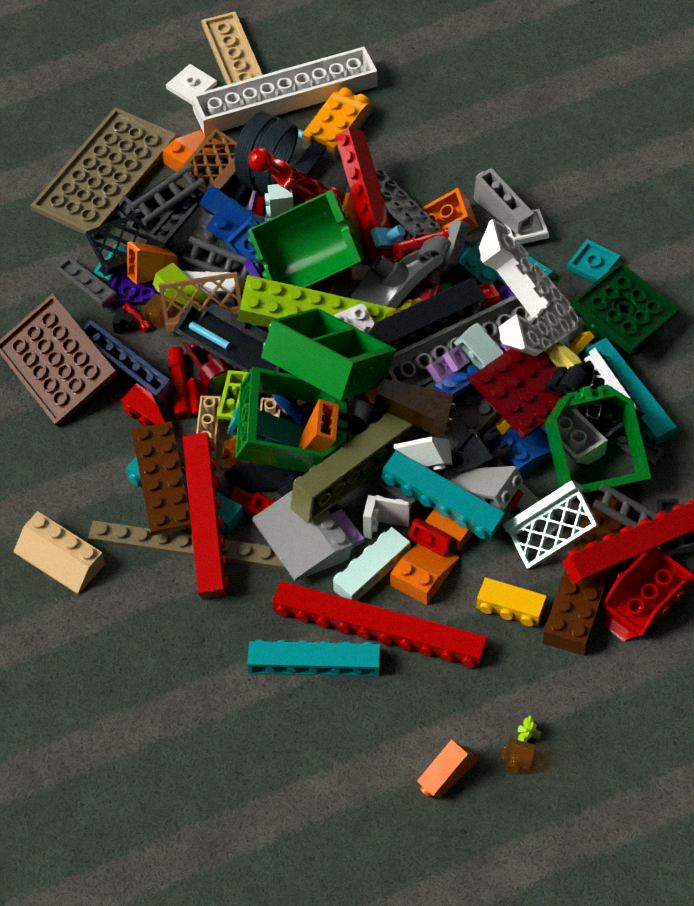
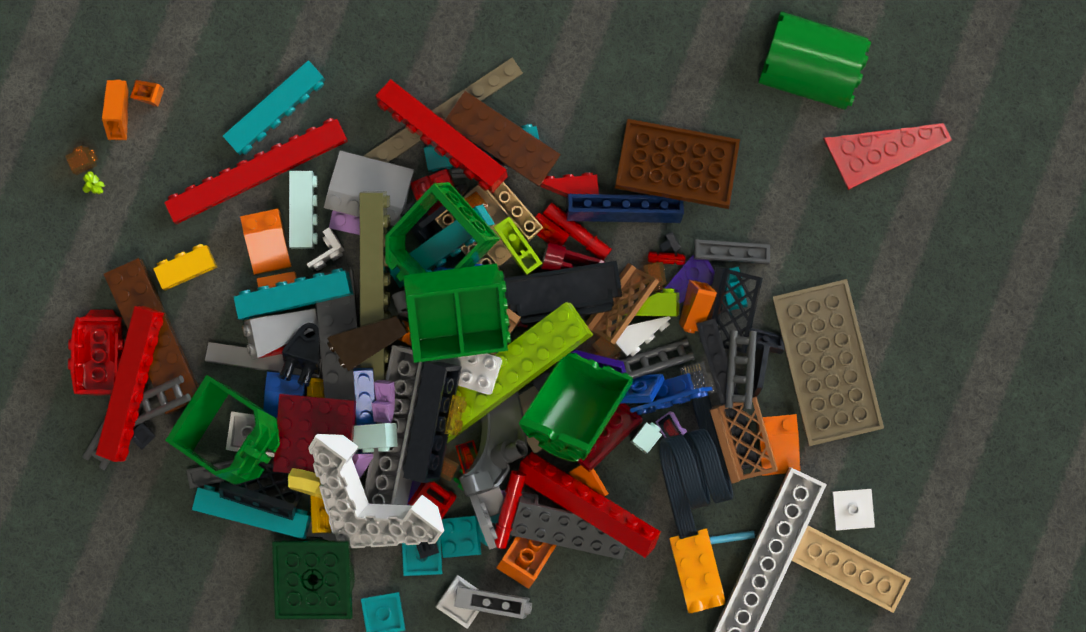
camera: 135 degrees right, 30 degrees up
(58, 553) = (518, 28): tan slope -> none
(209, 335) = (585, 279): medium azure piece -> none
(288, 176) = (639, 446): red piece -> none
(321, 427) = (408, 252): orange slope -> none
(386, 237) = (539, 482): medium azure tile -> none
(407, 760) = (147, 92): none -> orange slope
(428, 452) = (331, 314): white slope -> none
(430, 537) = (276, 265): red plate -> none
(544, 508) = (210, 361): light aqua fence -> none
(566, 380) = (283, 457): black piece -> none

